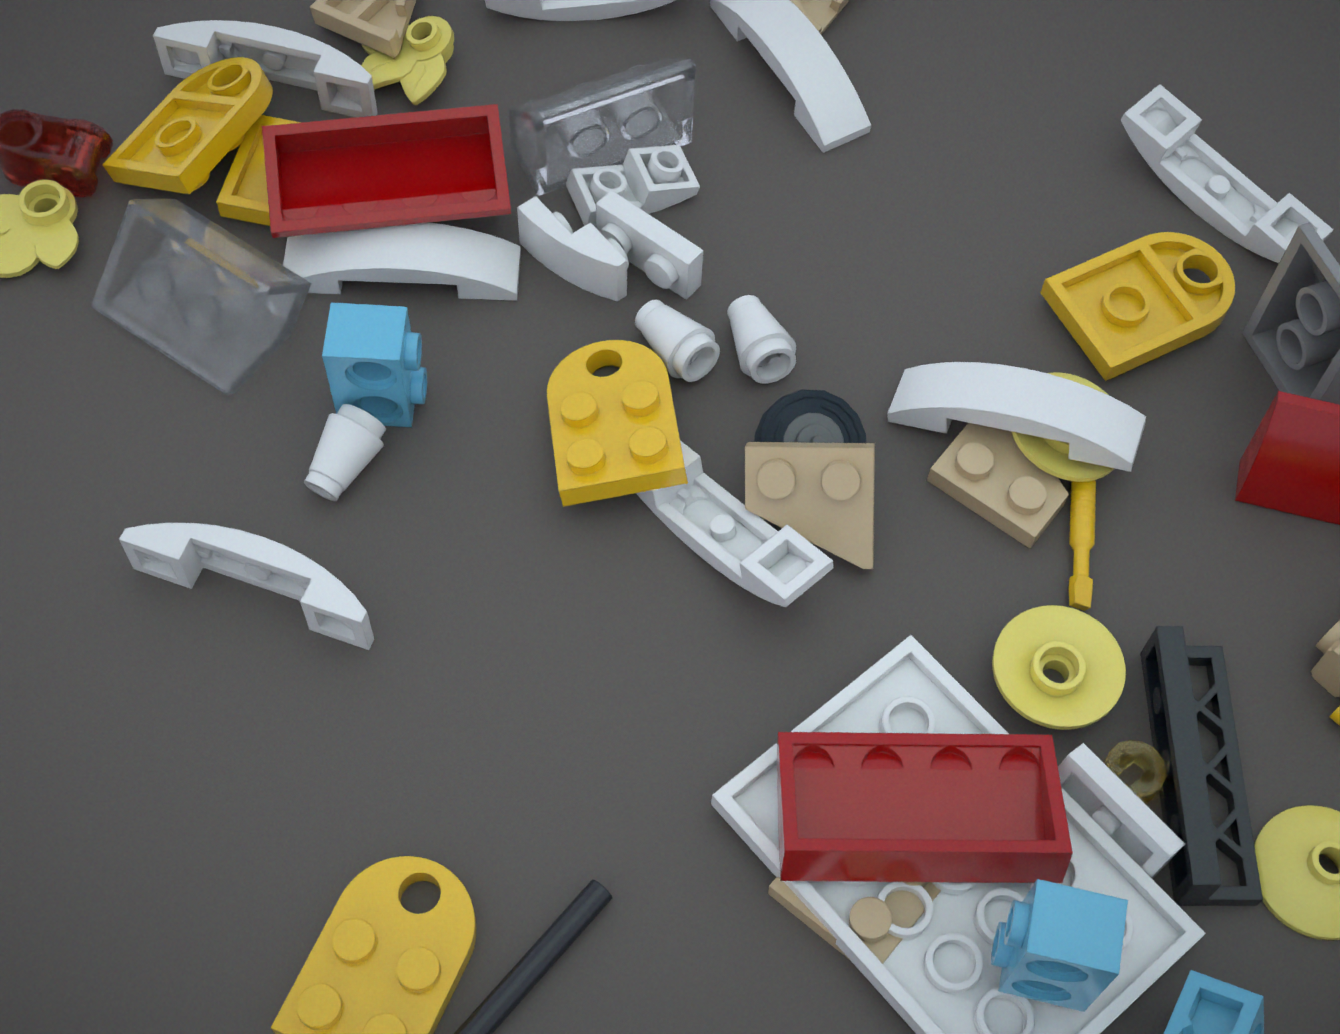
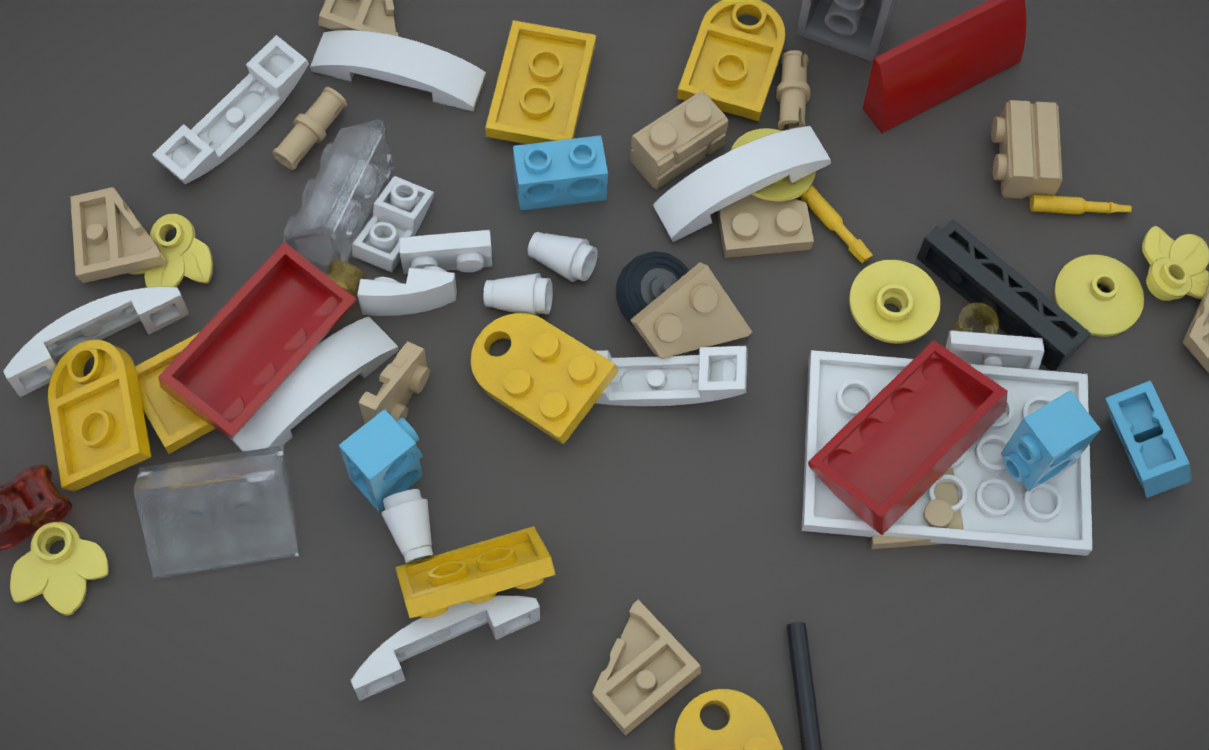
camera: 45 degrees left, 5 degrees up
(338, 538) = (474, 573): none -> yellow plate
(398, 783) = (643, 671): none -> tan wing
(462, 318) = (400, 378): none -> tan wing
(528, 186) = (346, 276): none -> clear yellow bush
(648, 45) = (309, 128): none -> tan pin
(836, 261) = (560, 172): none -> medium azure brick
(909, 174) = (540, 84): none -> yellow plate
(993, 324) = (678, 140): none -> tan brick
(1174, 378) = (793, 90): none -> tan pin

